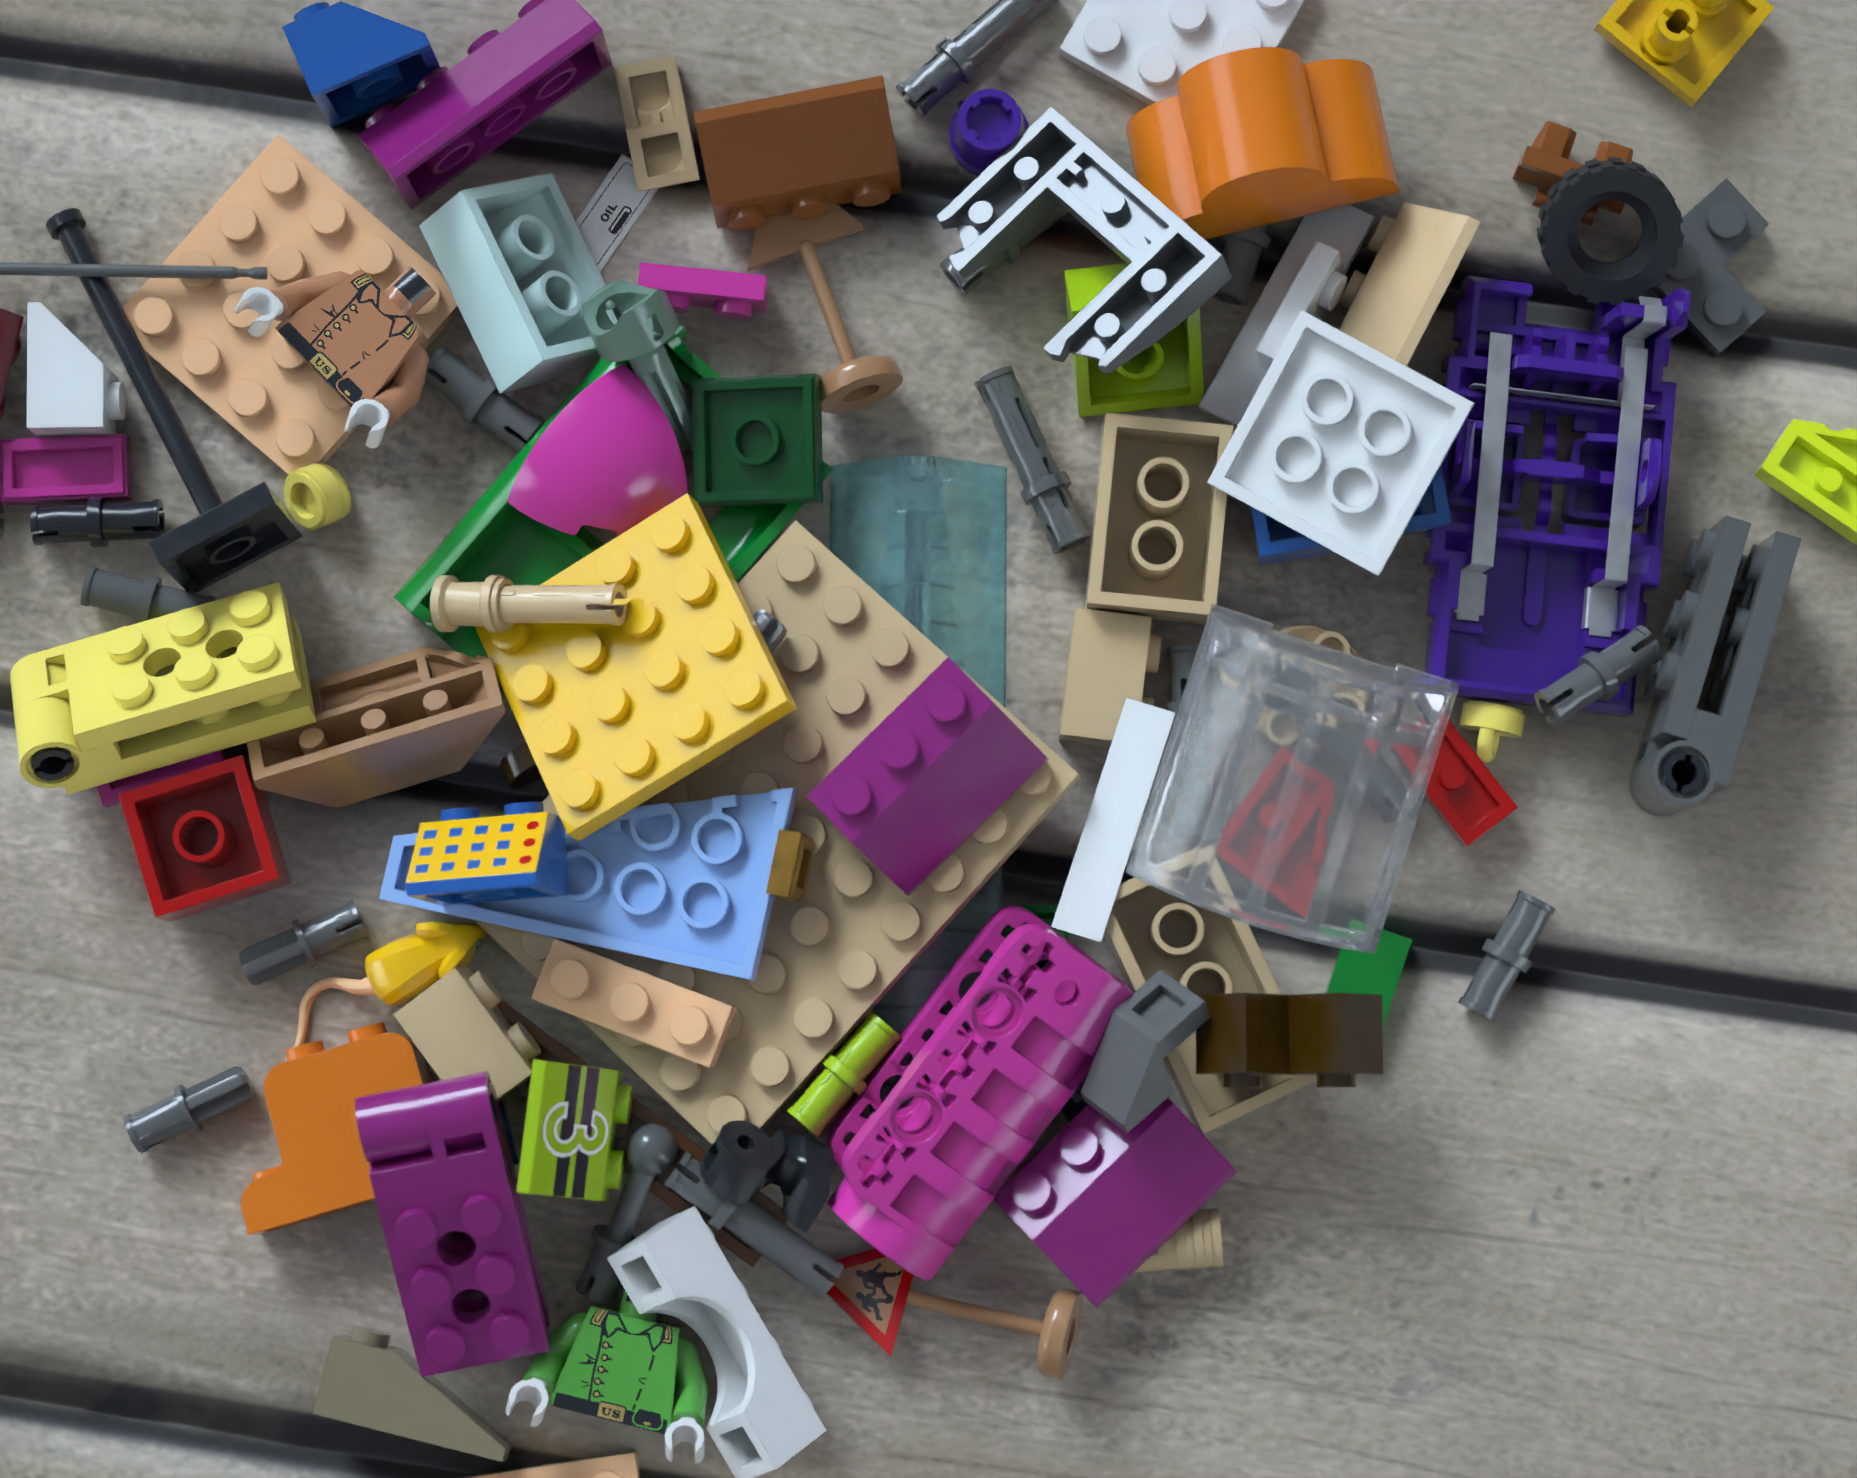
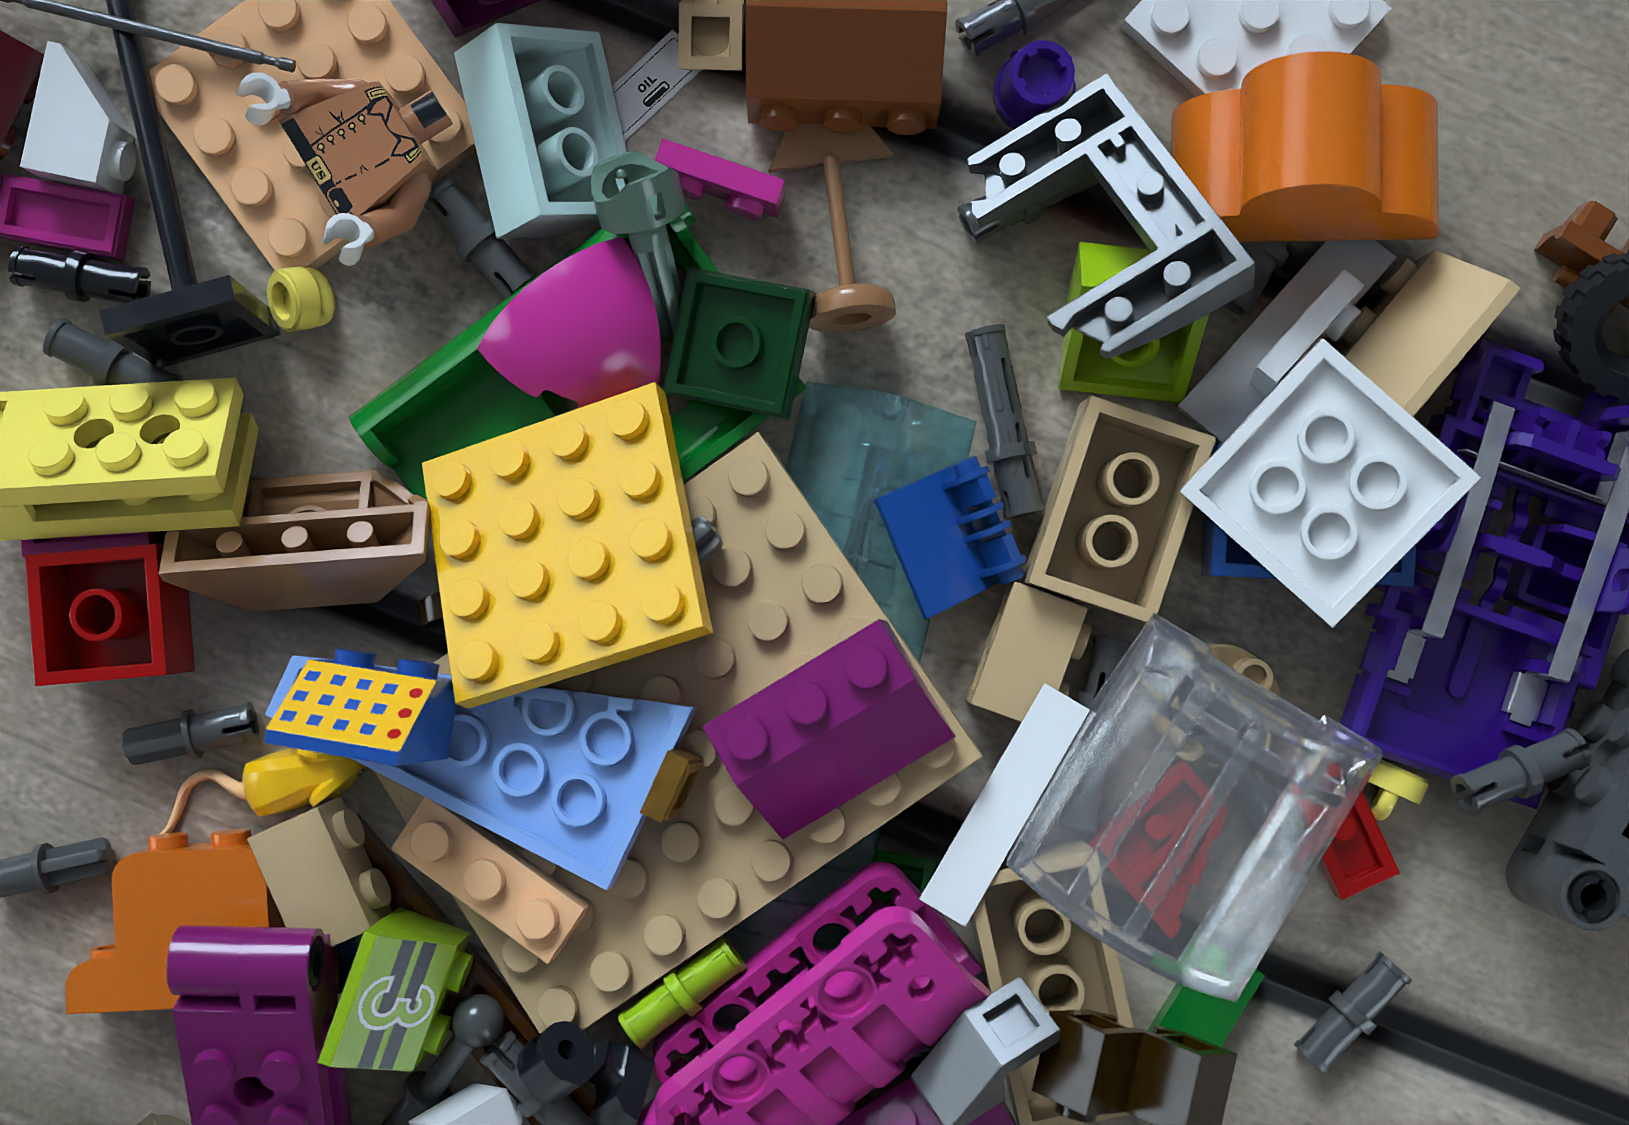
camera: 15 degrees right, 5 degrees up
(501, 604) = (445, 451): tan pin -> none
(1004, 579) = (950, 536): none -> blue hinge

